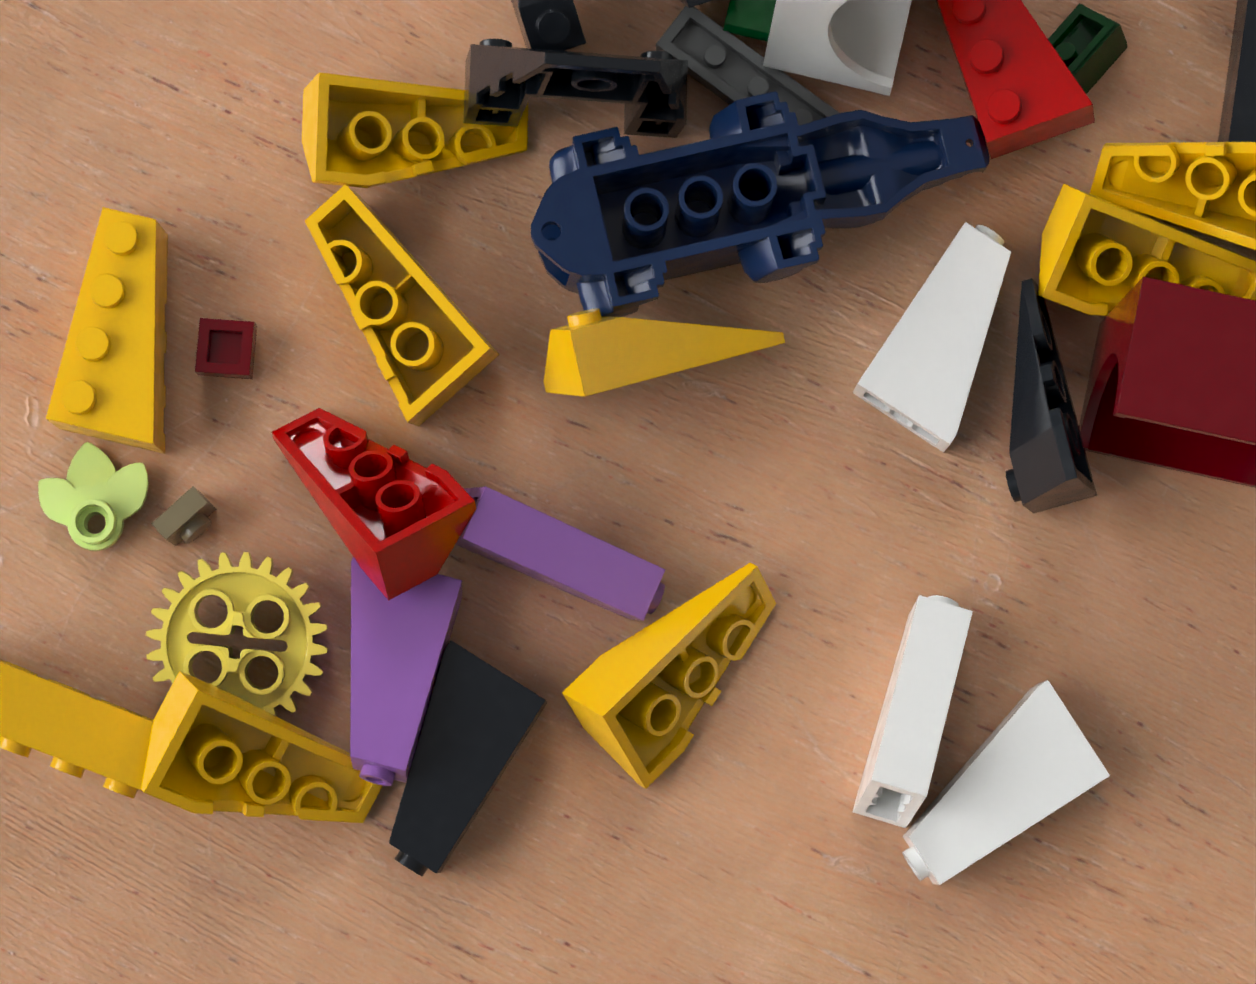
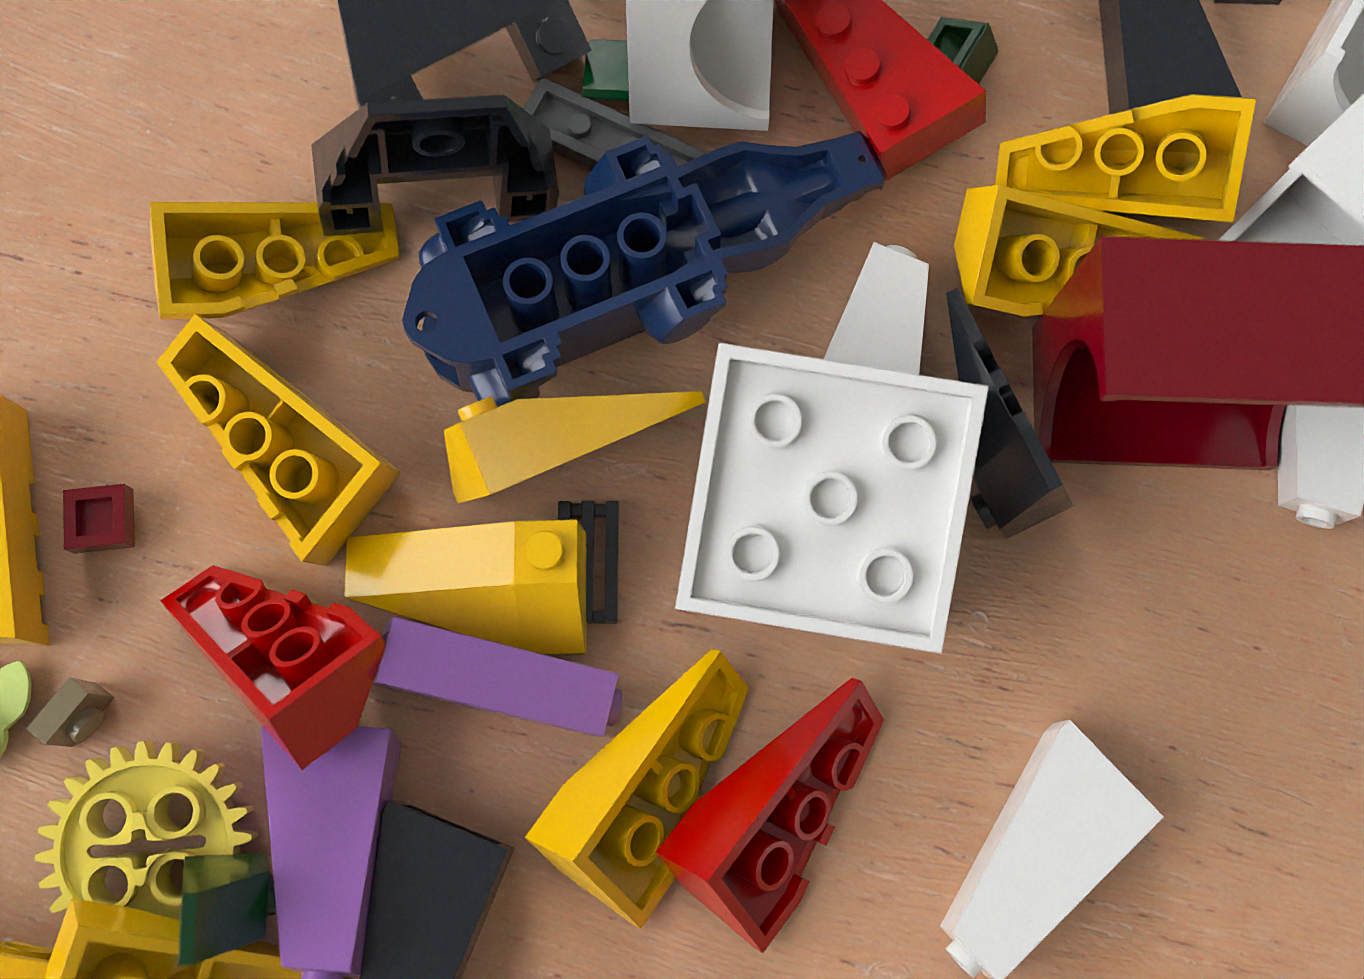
camera: 10 degrees left, 5 degrees down
(305, 697) = (223, 904): none -> dark green slope
(564, 467) = (485, 581): none -> yellow wedge
(661, 421) = (588, 511): none -> black tile
(762, 723) = (757, 828): none -> red wedge
(875, 450) = (831, 497): none -> white container
(914, 712) = (927, 786): white slope -> none

